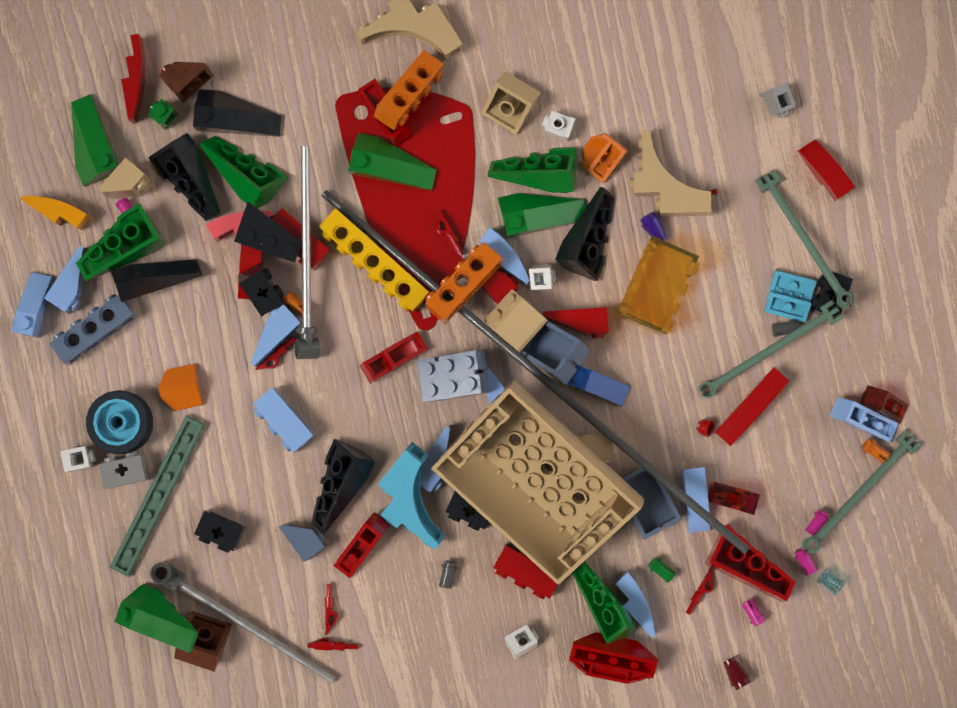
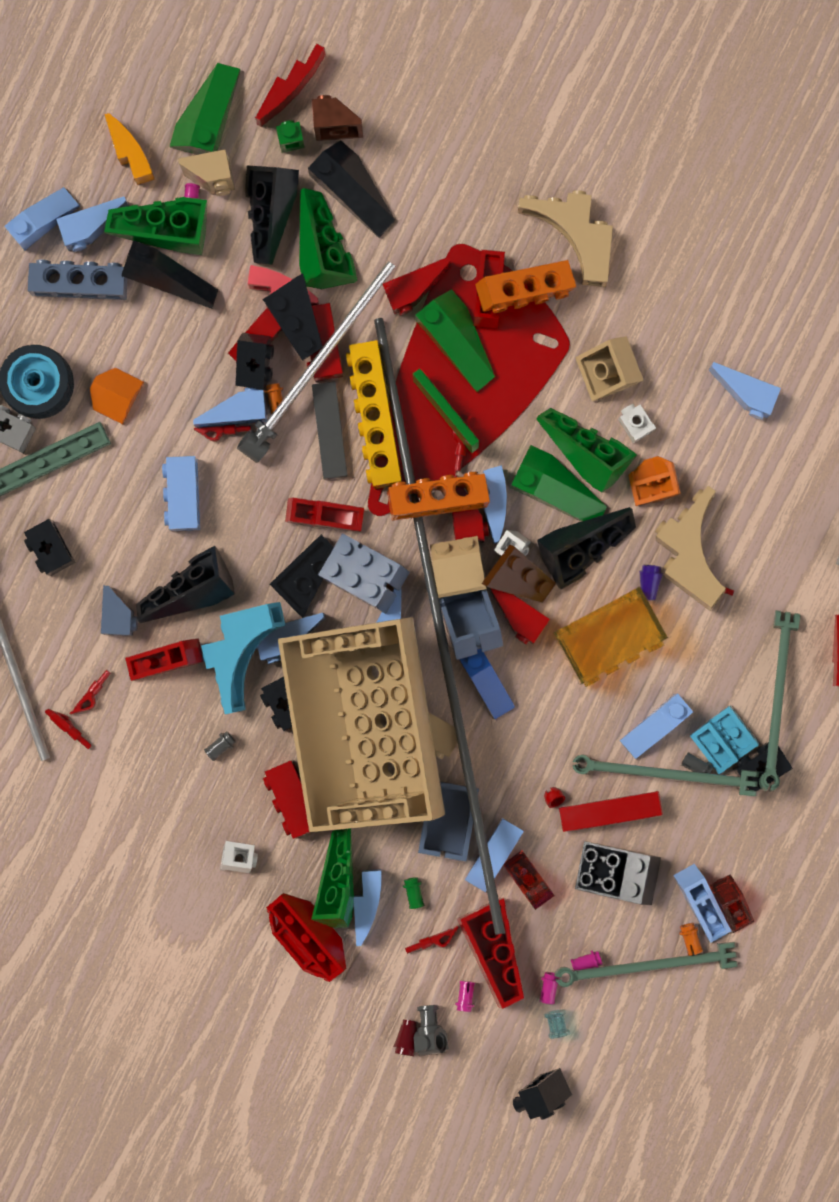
camera: 40 degrees right, 0 degrees up
(329, 155) = (412, 287): none -> red slope
(350, 296) = (329, 430): none -> dark grey tile
(412, 414) = (300, 579): none -> black wing
(421, 219) = (446, 410): none -> green tile
(562, 294) = (519, 576): none -> reddish brown wing
(618, 44) = (749, 392): none -> light blue slope
(736, 322) = (656, 725): none -> light blue slope
(751, 659) = (430, 1036): none -> dark grey connector
(790, 445) = (618, 873): none -> black slope
(861, 638) = (543, 1095): none -> black brick

